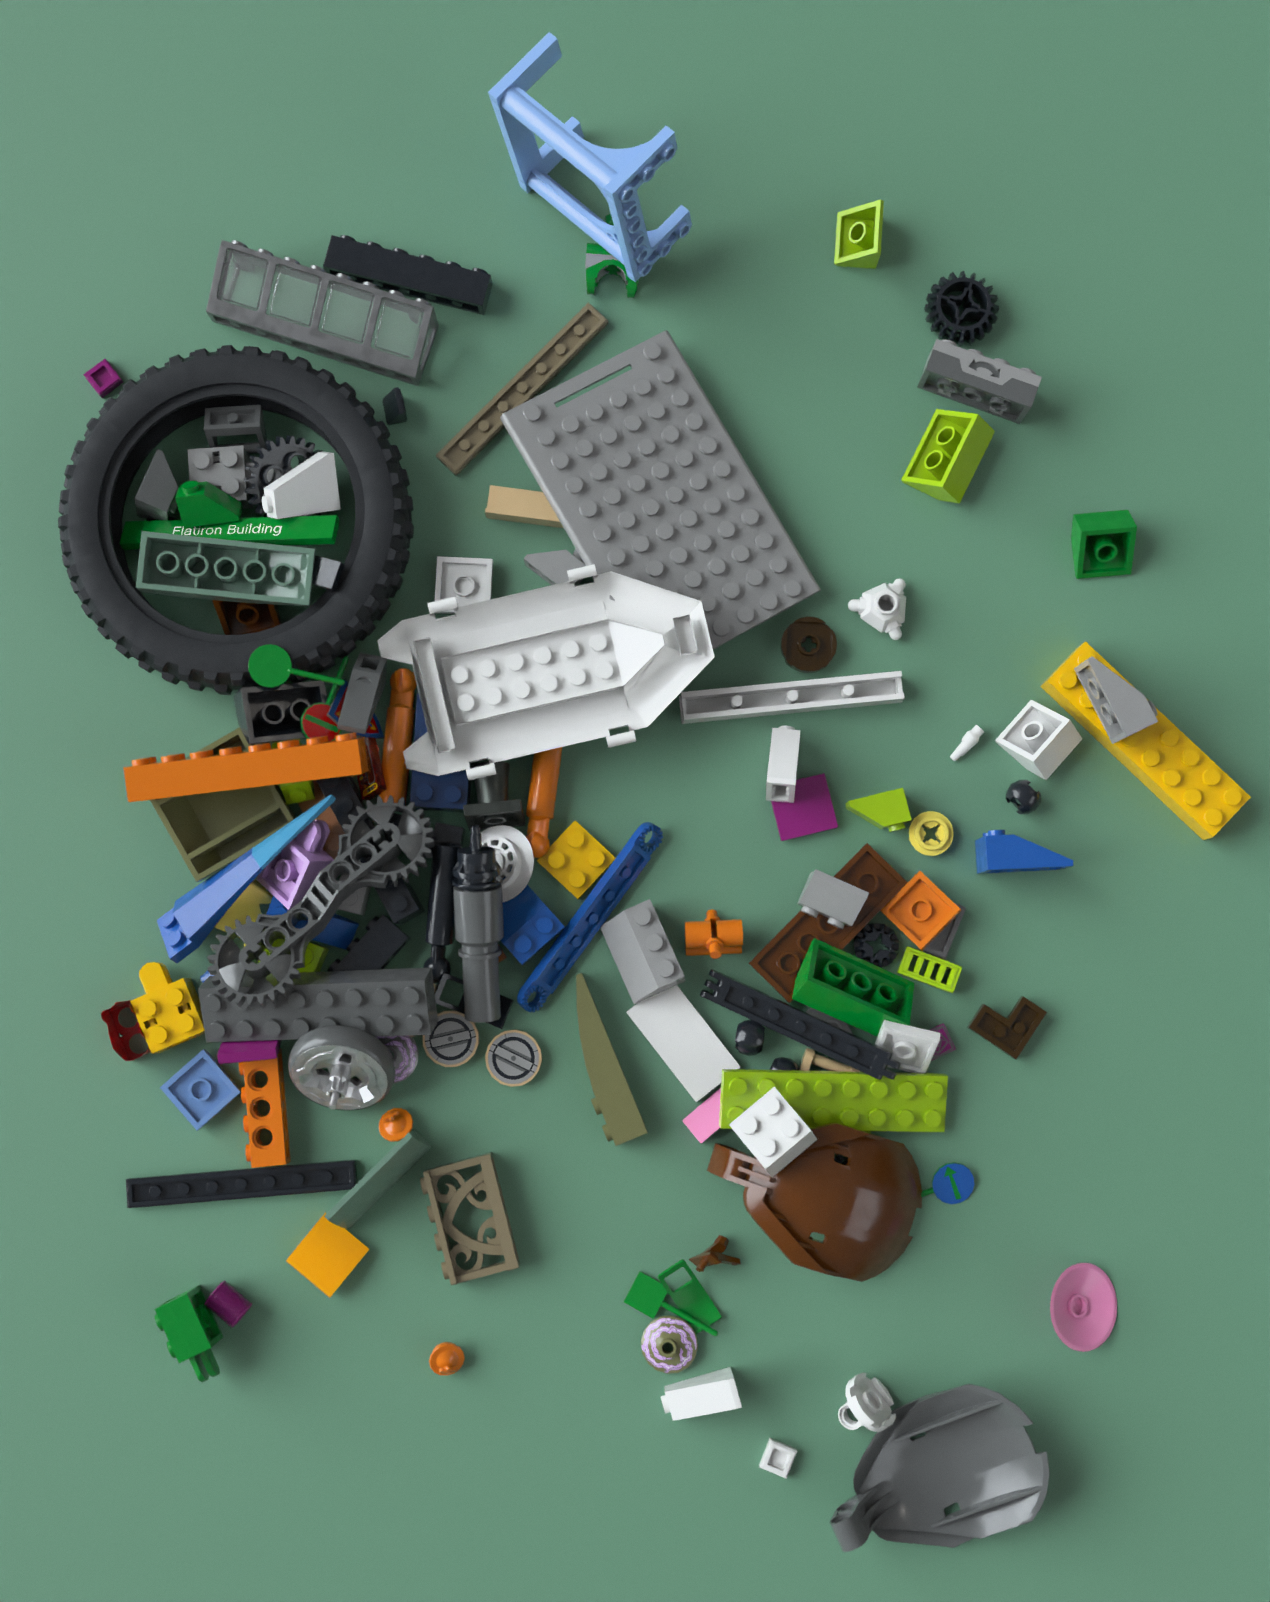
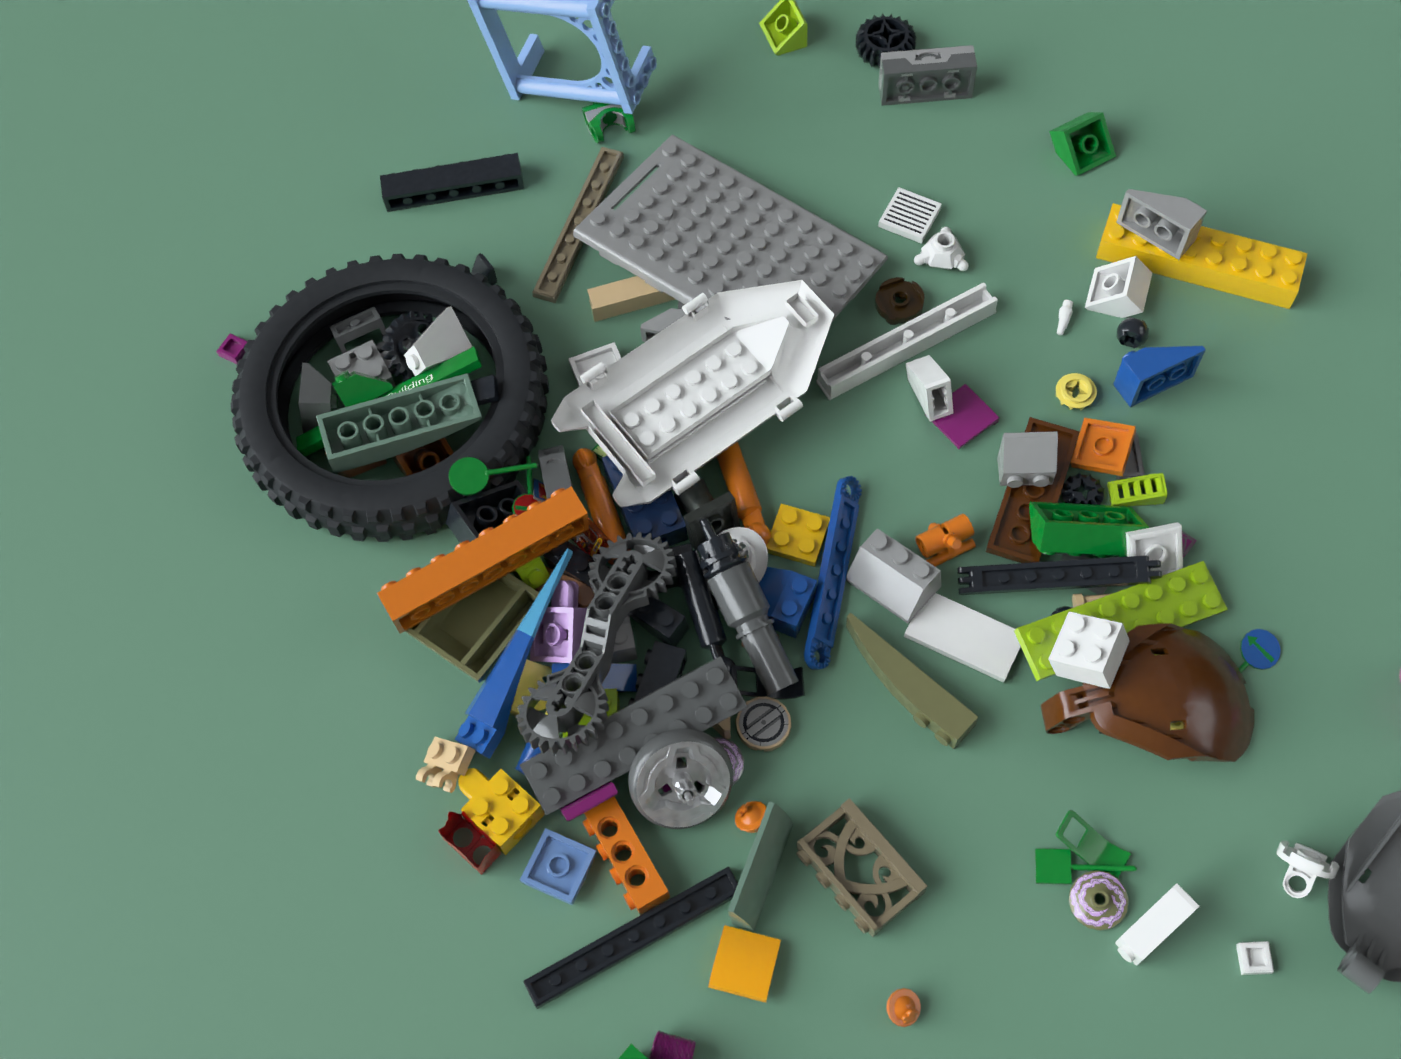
camera: 15 degrees left, 20 degrees down
(141, 939) = (445, 756): none -> tan plate
(321, 312) = (427, 221): window -> none
(513, 1058) = (827, 715): tile -> none
(705, 1118) = (1021, 687): bright pink slope -> none
(713, 1255) = (1095, 800): reddish brown piece -> none
(749, 1037) = (1021, 605): black piece -> none
(873, 544) = (909, 215): none -> white tile
(883, 809) = (1026, 388): lime slope -> none
(948, 455) = (932, 133): lime slope -> none
(1008, 1033) = (1229, 510): dark brown plate -> none

